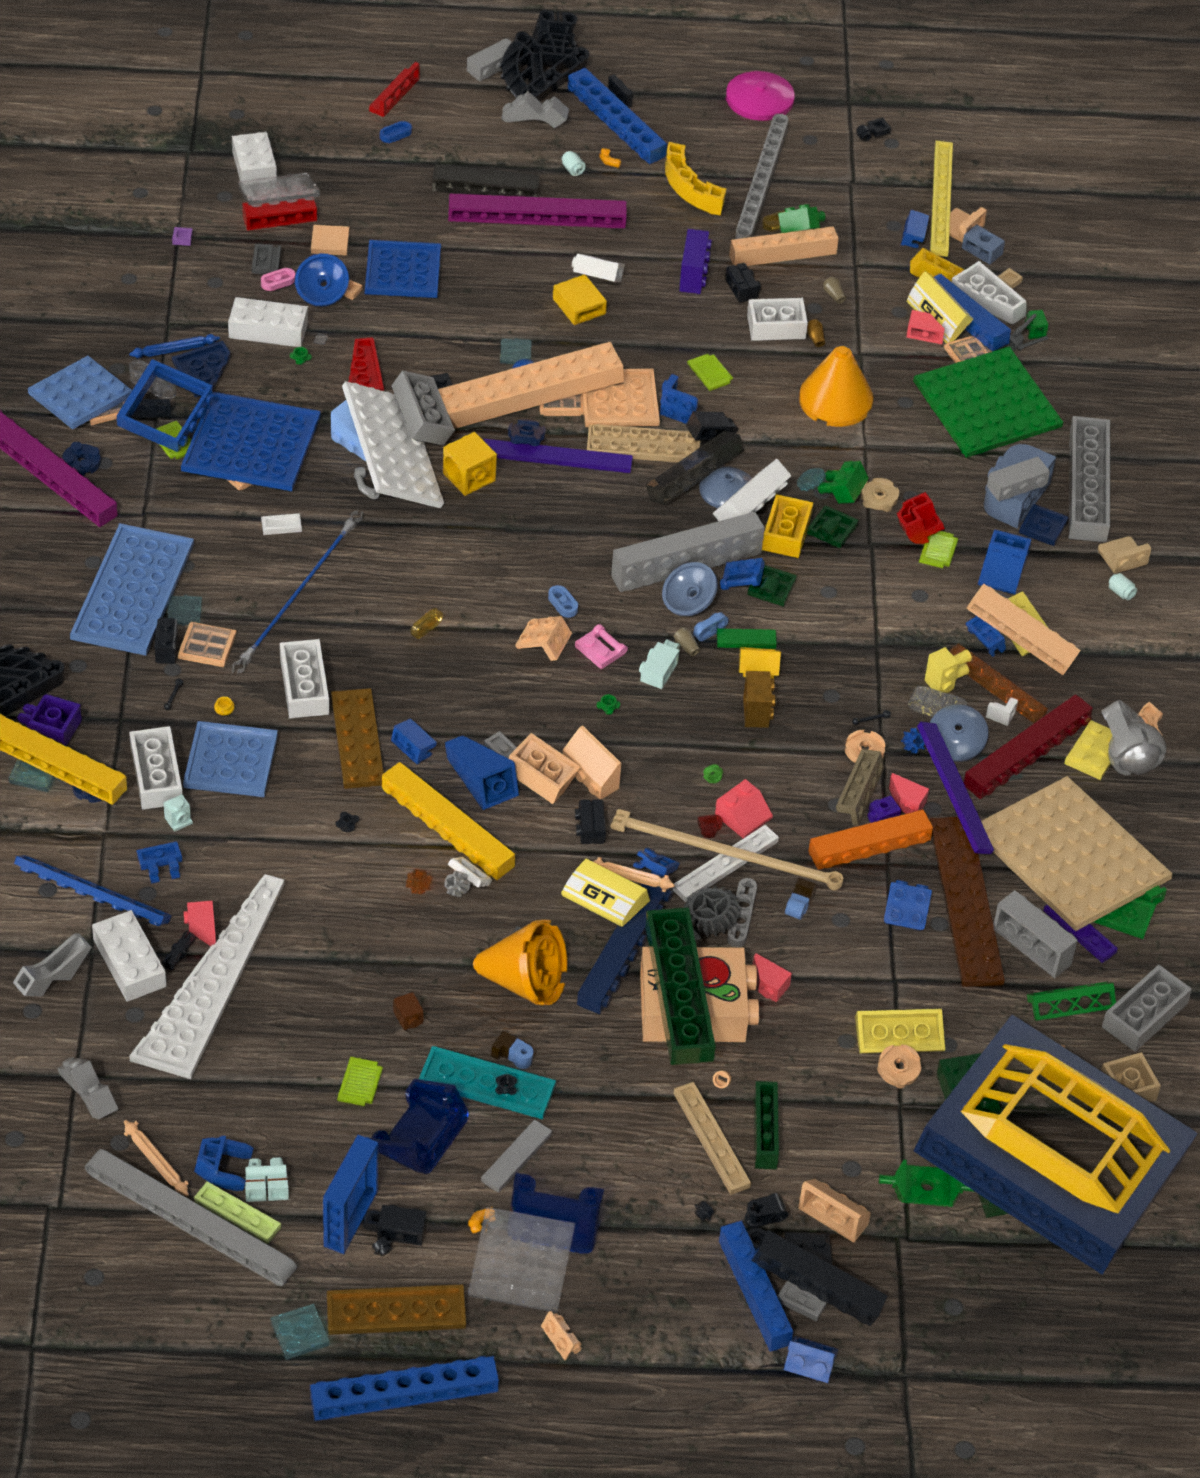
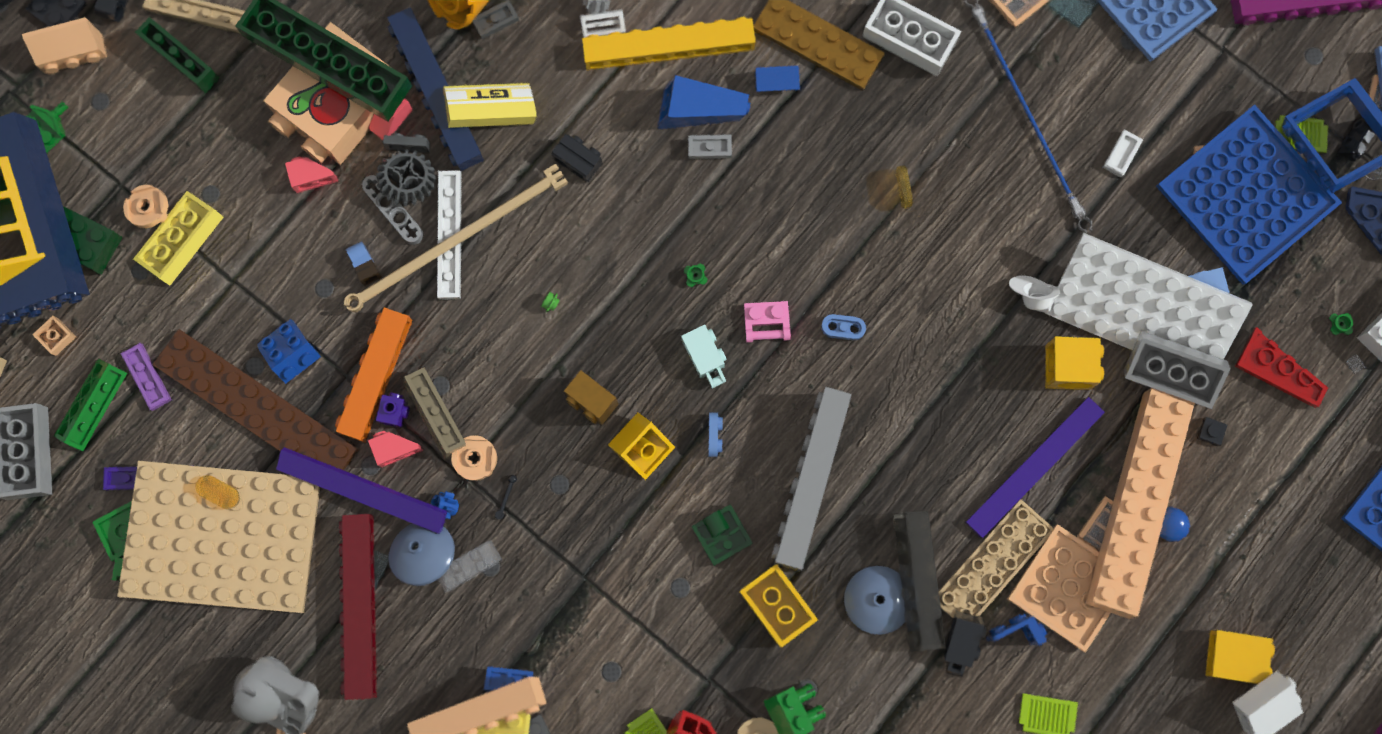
camera: 135 degrees right, 30 degrees up
(90, 454) = (1338, 27): dark blue plate -> none
(435, 511) = (1035, 293): none -> white piece
(514, 350) = (1209, 540): clear light blue piece -> none
(526, 432) = (1071, 453): dark blue plate -> none
(543, 768) = (657, 151): light nougat slope -> none
(548, 632) = (812, 277): light nougat bracket -> none
(598, 766) = (632, 199): light nougat slope -> none
(637, 875) = (489, 138): light nougat wheel -> none
(656, 863) = (482, 175): blue plate -> none
(686, 582) = (768, 437): sand blue dish -> none
(687, 641) = (713, 399): dark tan cone -> none
(710, 825) = (501, 257): clear red tile -> none
(720, 1083) = (251, 64): light nougat hinge -> none
(742, 573) = (757, 520): blue plate -> none
(743, 809) = (490, 293): coral slope -> none
(746, 638) = (679, 459): green tile -> none
(755, 492) = (836, 598): white brick -> none
(811, 479) = (830, 679): clear light blue gear -> none
(832, 526) = (751, 656): dark green plate -> none
(945, 669) = (490, 598): light yellow brick -> none
(1002, 687) = (454, 646): clear orange plate -> none
(1002, 713) = (417, 620): white panel -> none
(1016, 982) = (146, 377): none -> medium lavender tile
(1034, 934) = (162, 420): light grey brick -> none
(1045, 863) = (217, 492): none -> clear yellow tile
(1091, 751) = (312, 661): light yellow plate -> none

